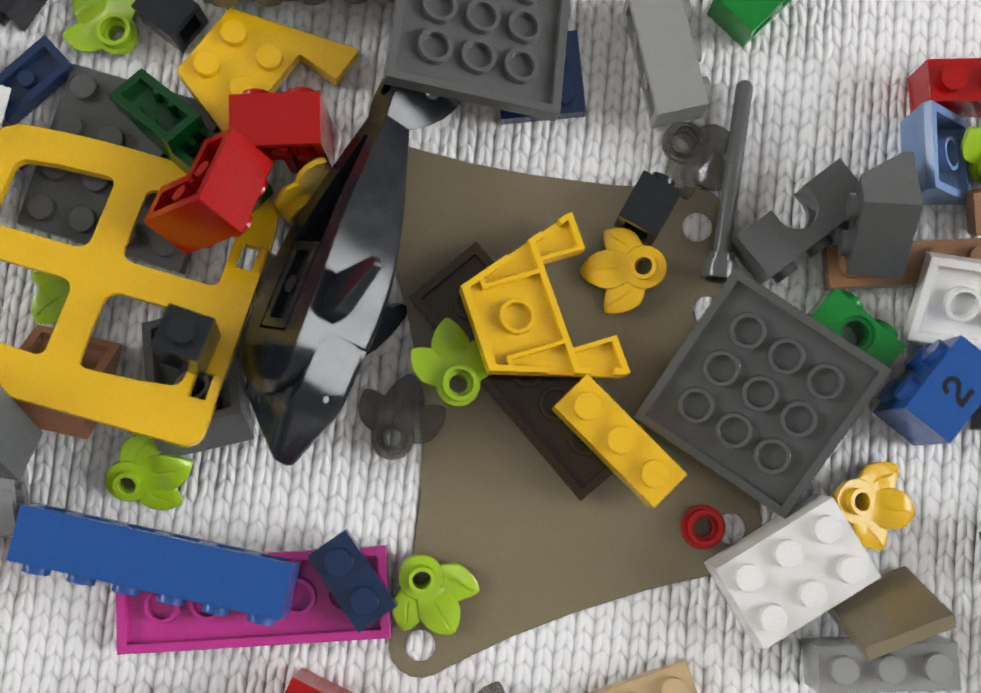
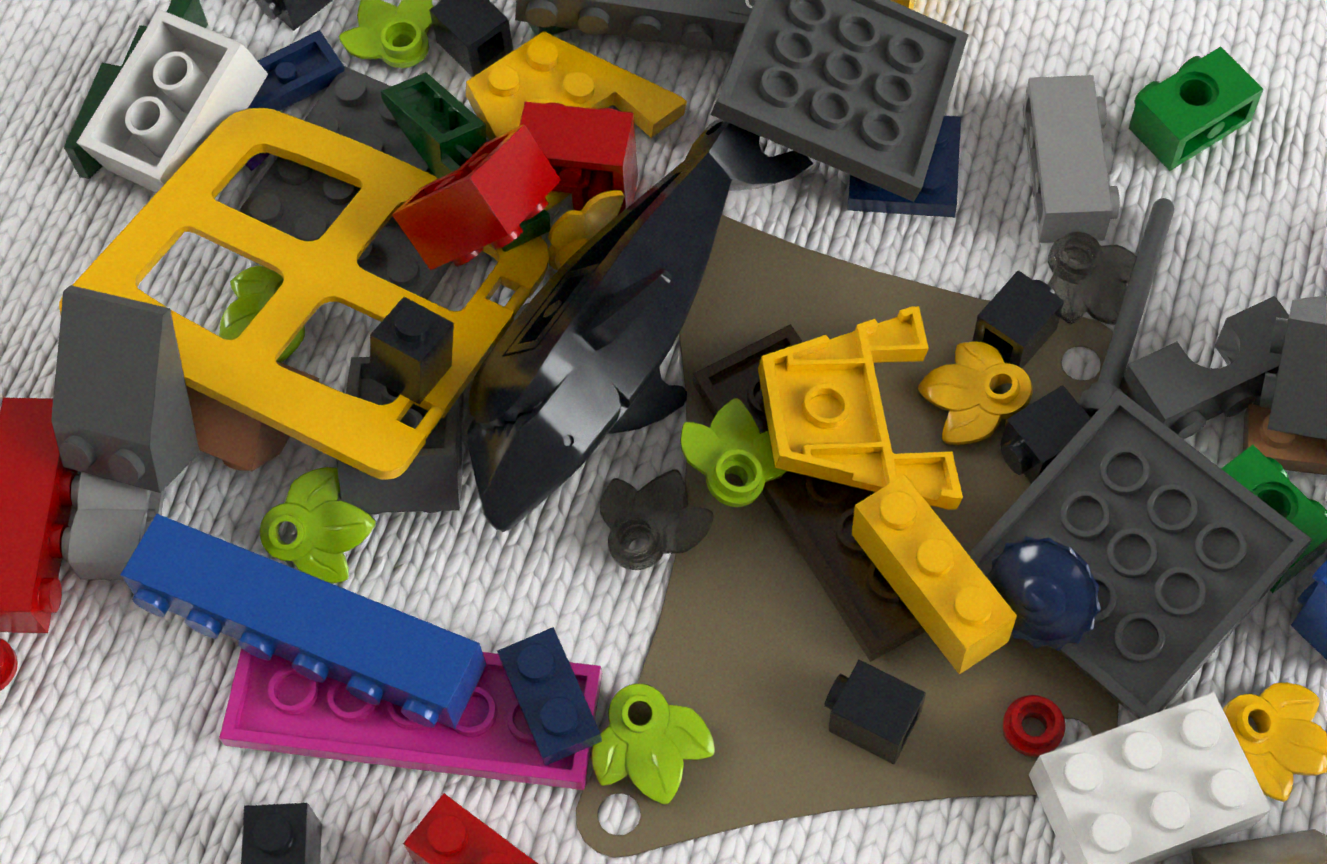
camera: 15 degrees right, 20 degrees down
(589, 543) = (874, 710): none -> black brick
(682, 302) = (1041, 432): none -> black brick
(703, 442) = (1047, 591): none -> dark blue piece

